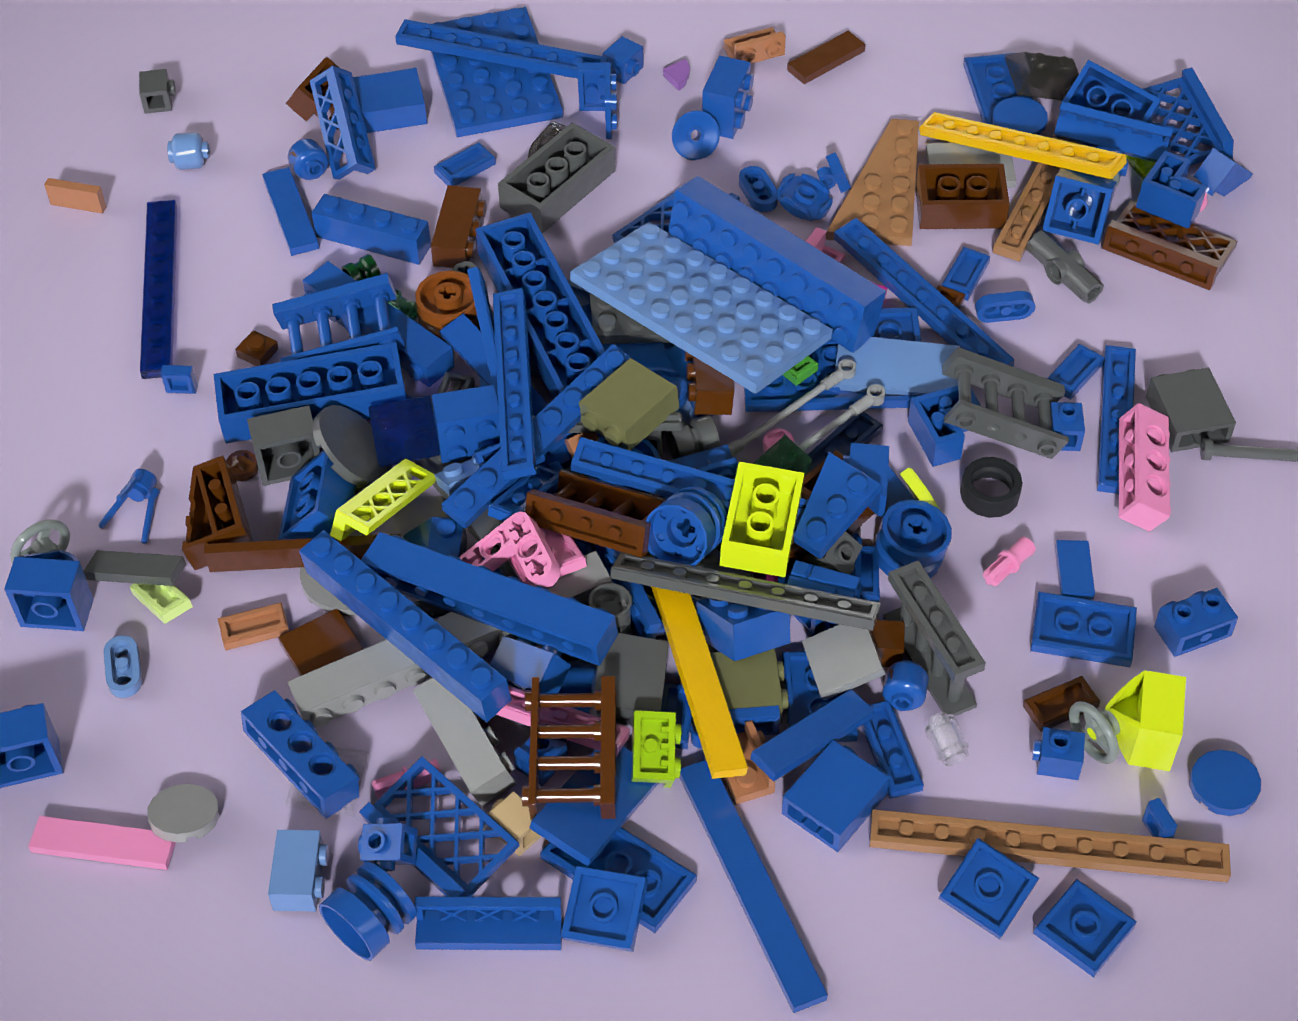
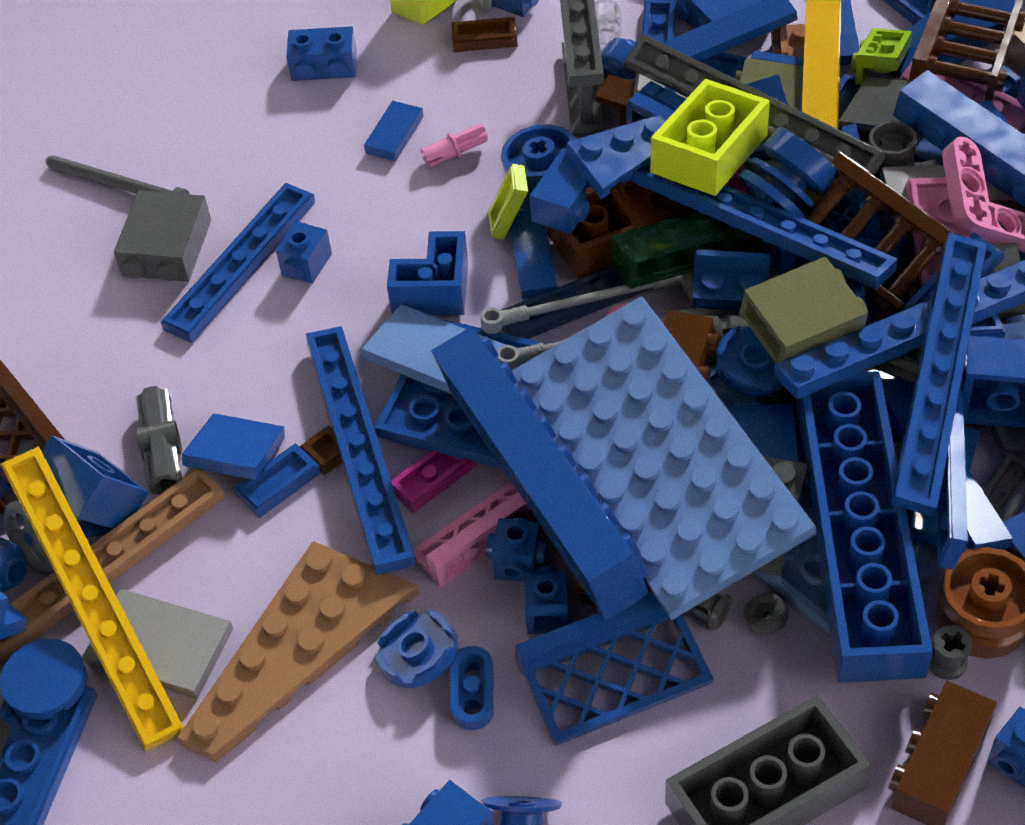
camera: 155 degrees left, 0 degrees up
(834, 174) = (354, 673): blue tile -> none
(962, 196) = (214, 564): reddish brown brick -> none
(991, 468) = (421, 196): black tyre -> none
(1005, 306) = (267, 406): blue plate -> none
(1008, 270) = (233, 446): none -> blue tile
(1014, 384) = (370, 280): dark grey fence -> none
(1077, 370) = (243, 322): blue tile -> none
(1084, 629) = (422, 82): blue tile -> none
(1144, 467) = (260, 183): bright pink brick -> none

